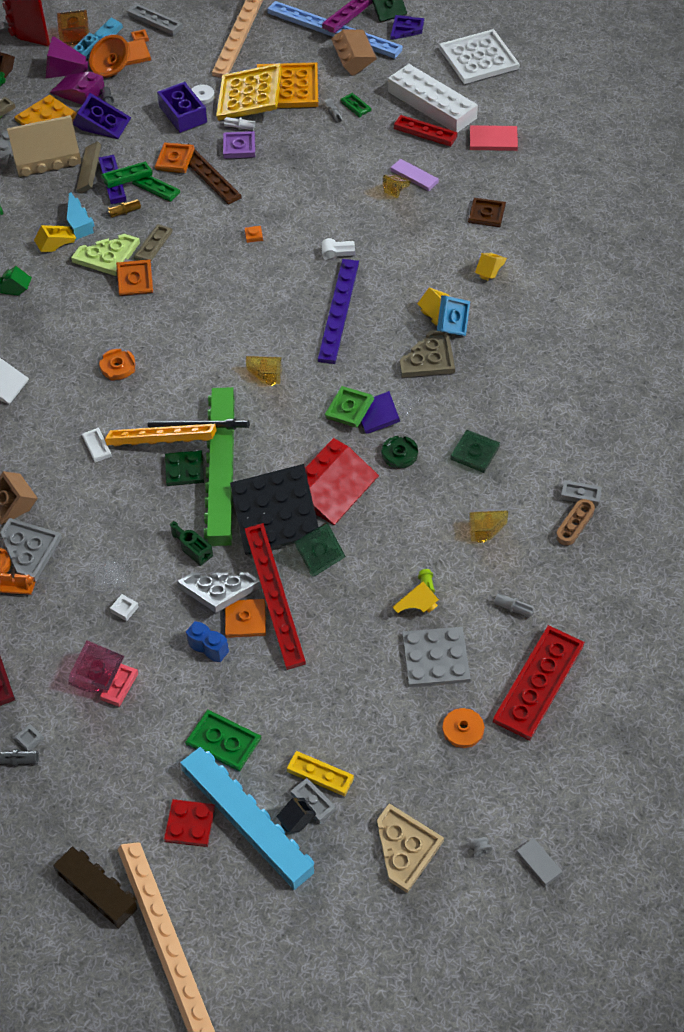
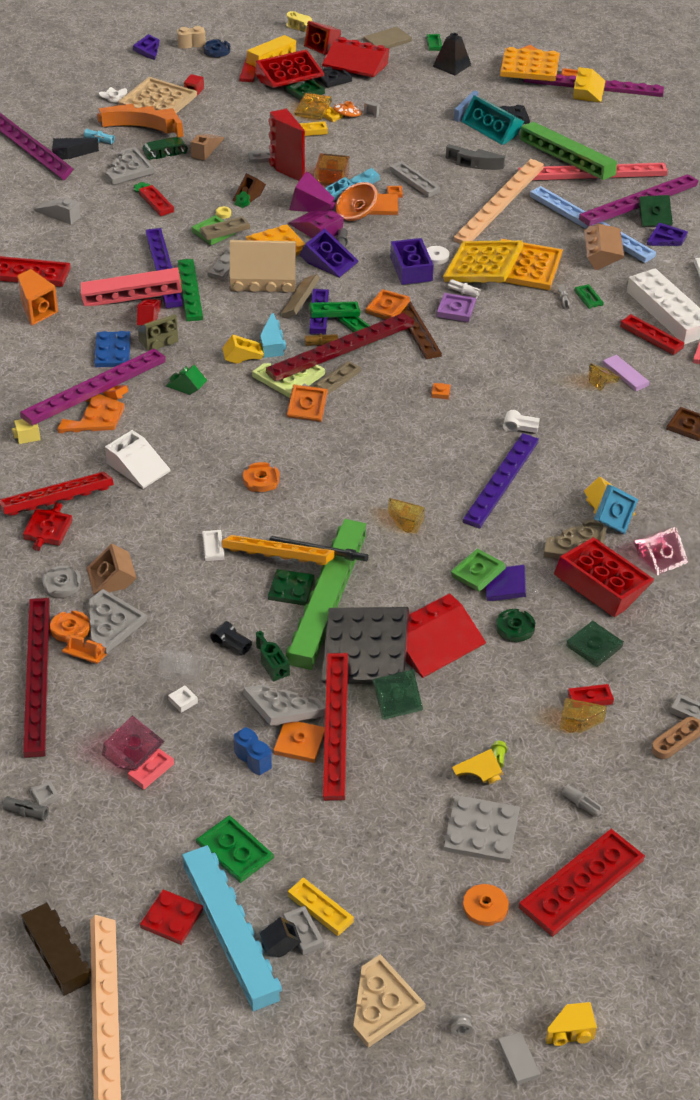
camera: 15 degrees right, 10 degrees down
(143, 533) = (227, 636): none -> black piece
(144, 212) = (339, 347): none -> dark red plate
(462, 384) = (602, 576): none -> red slope
(489, 265) = (673, 472): yellow arch -> none
(490, 501) = (592, 694): none -> red plate
(504, 344) = (661, 550): none -> clear pink slope
(576, 817) = (572, 1024): none -> yellow slope

